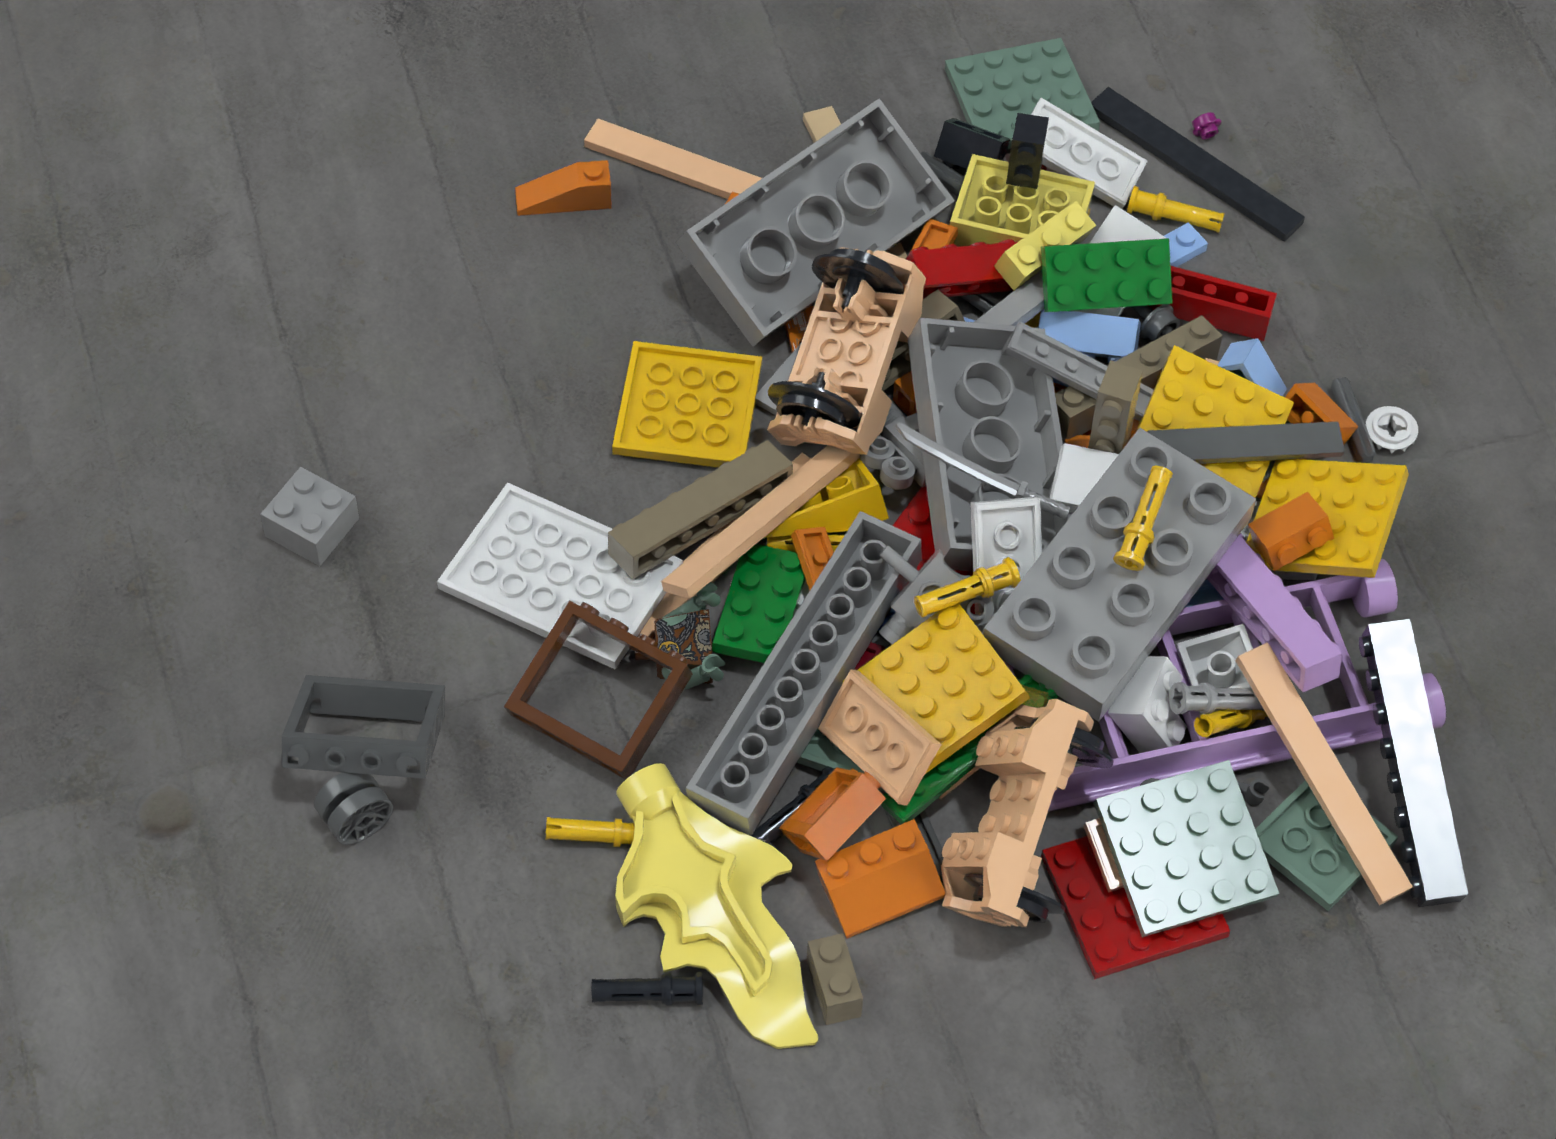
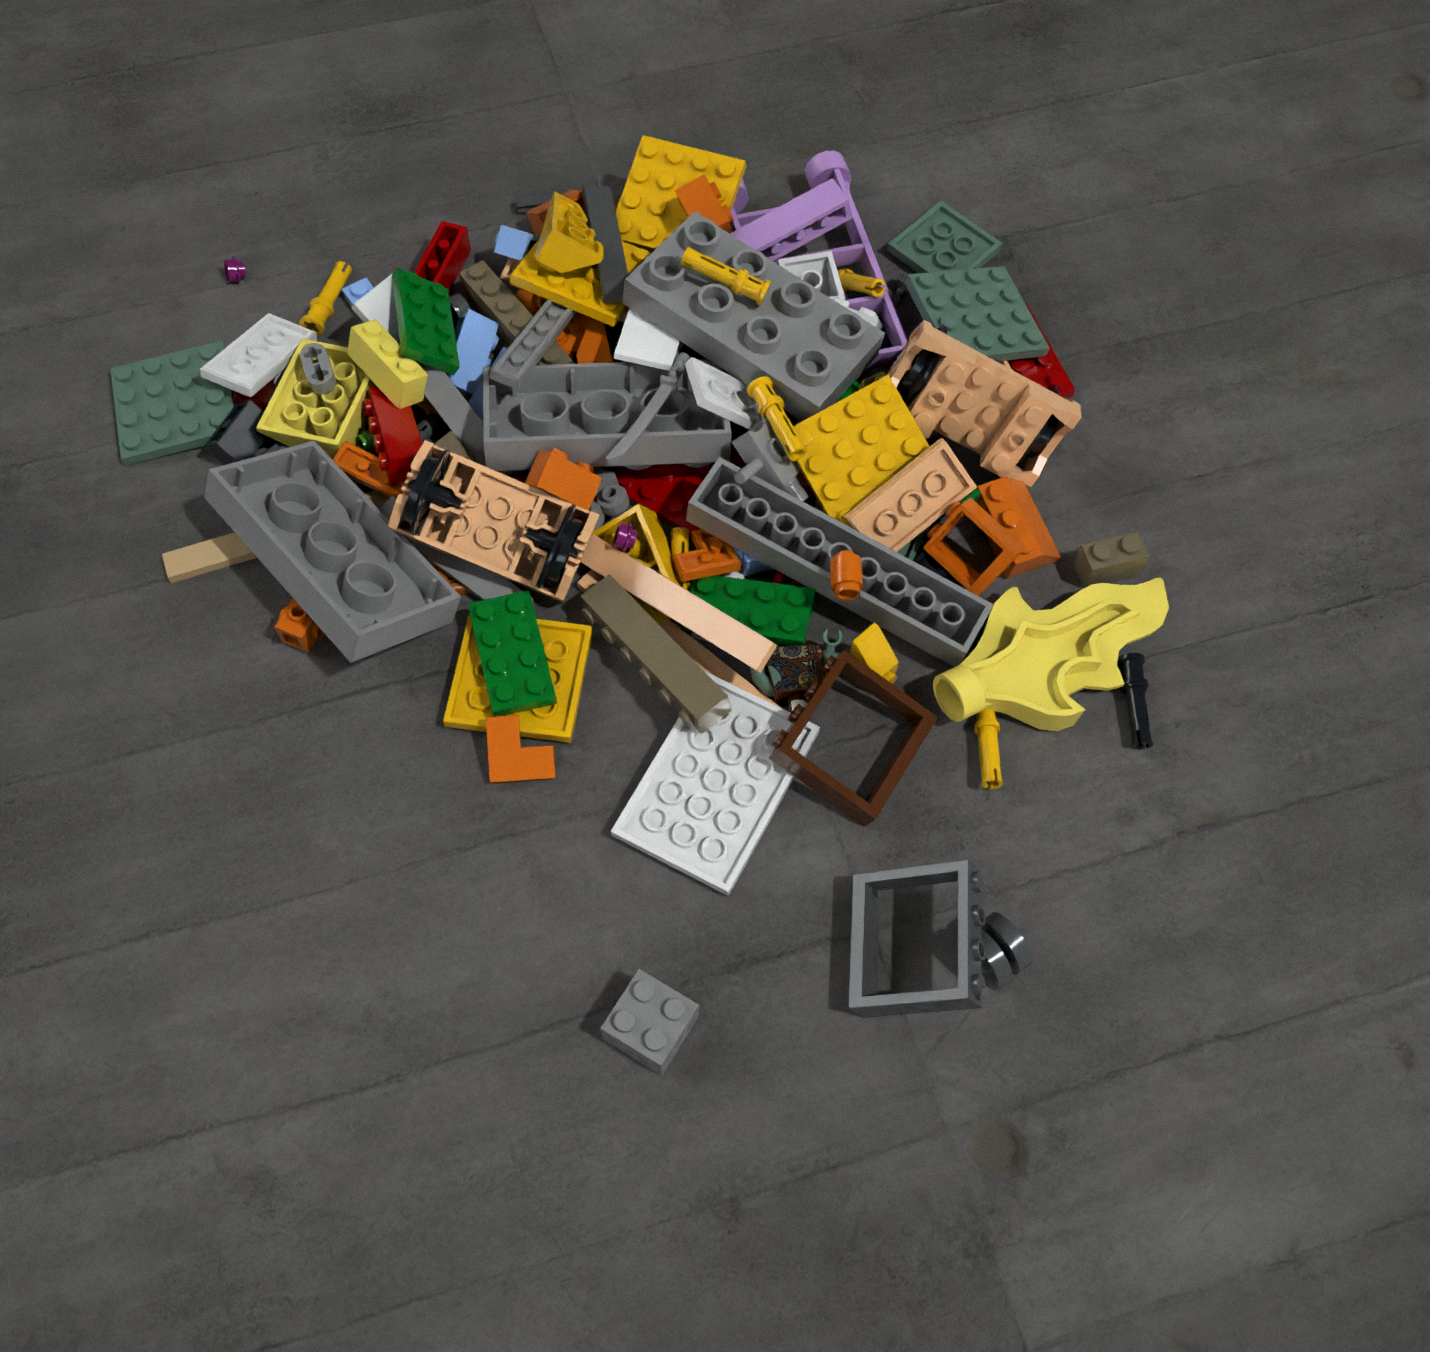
camera: 90 degrees left, 5 degrees up
(569, 189) = (239, 790): orange slope -> none
(591, 398) = (508, 759): none -> orange tile
(667, 160) = (219, 682): light nougat tile -> none
(694, 715) = (875, 652): none -> yellow slope
(706, 391) = (512, 653): none -> green plate
(768, 656) = (846, 575): none -> orange brick
(837, 473) = (624, 536): none -> magenta plate
(892, 399) = (563, 478): none -> orange brick
(1027, 150) = (276, 369): black brick -> none
(1047, 194) = (323, 367): none -> light grey beam
(1115, 408) = (598, 308): dark tan brick -> none
(1197, 164) = (272, 282): black tile -> none
(1207, 698) = (855, 280): light grey pin -> none
(1234, 395) = (566, 239): none -> yellow wedge
(1324, 774) = (901, 227): light nougat tile -> none
(1402, 423) = (557, 171): white gear -> none
(1413, 763) = (891, 171): brick -> none

